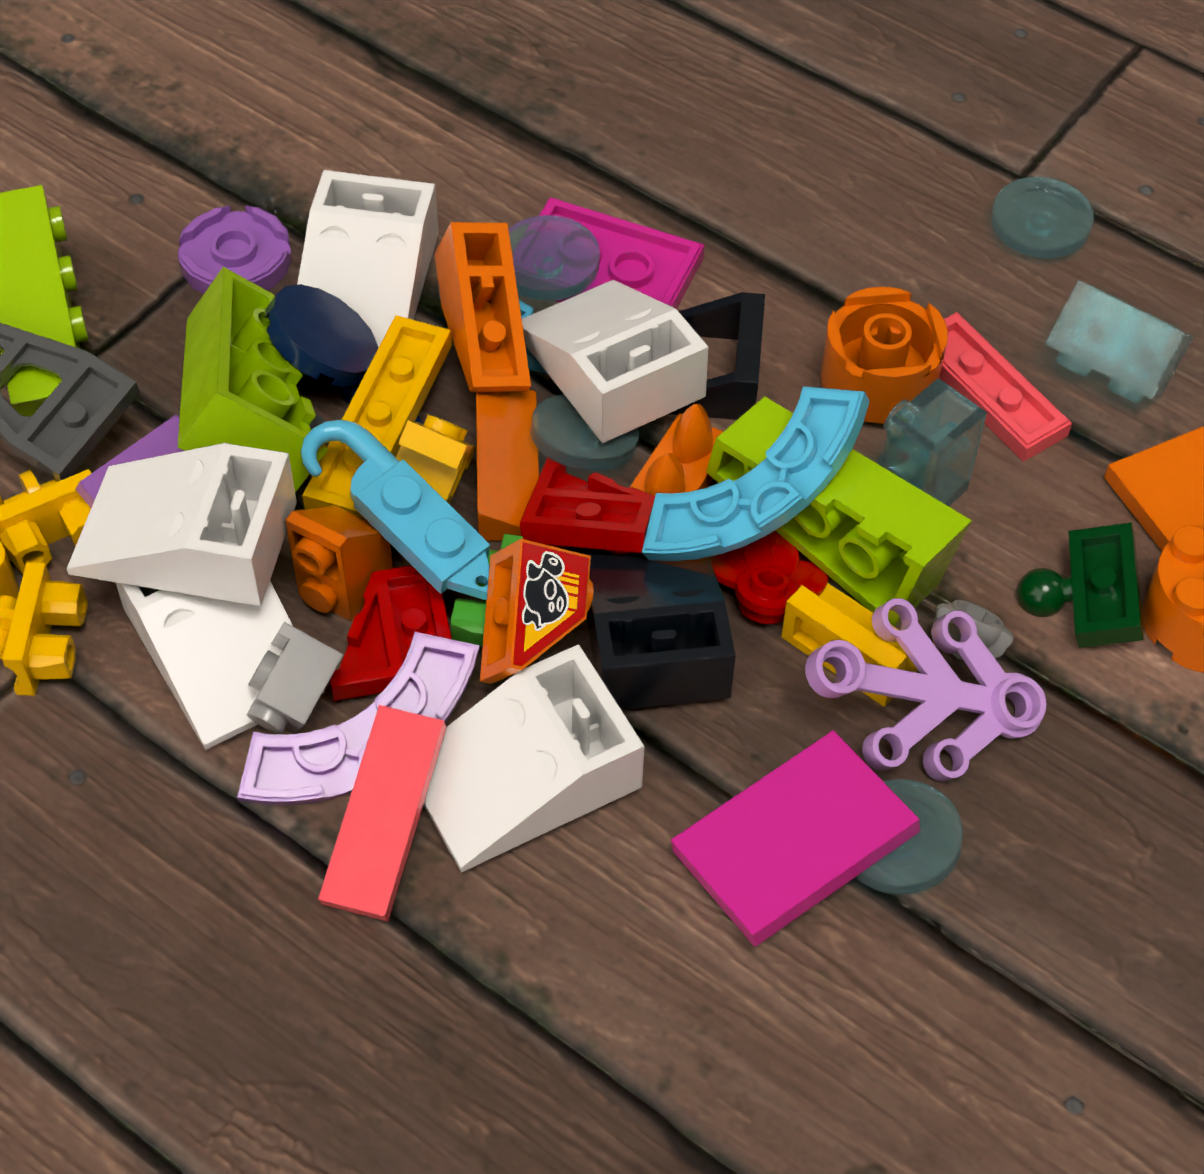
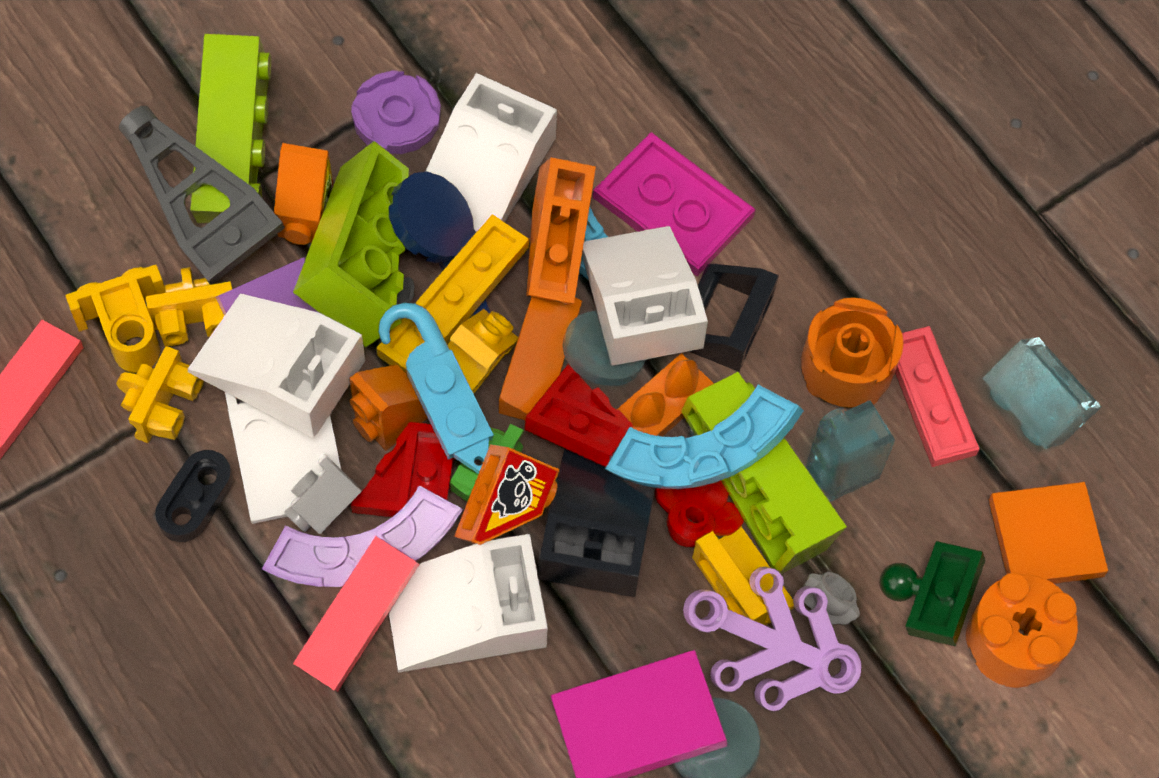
camera: 15 degrees right, 10 degrees up
(116, 740) = (191, 497): none -> black plate
(149, 346) = (302, 191): none -> orange slope
(553, 257) = (628, 192): clear light blue piece -> none
(1042, 217) = (1033, 259): clear light blue piece -> none

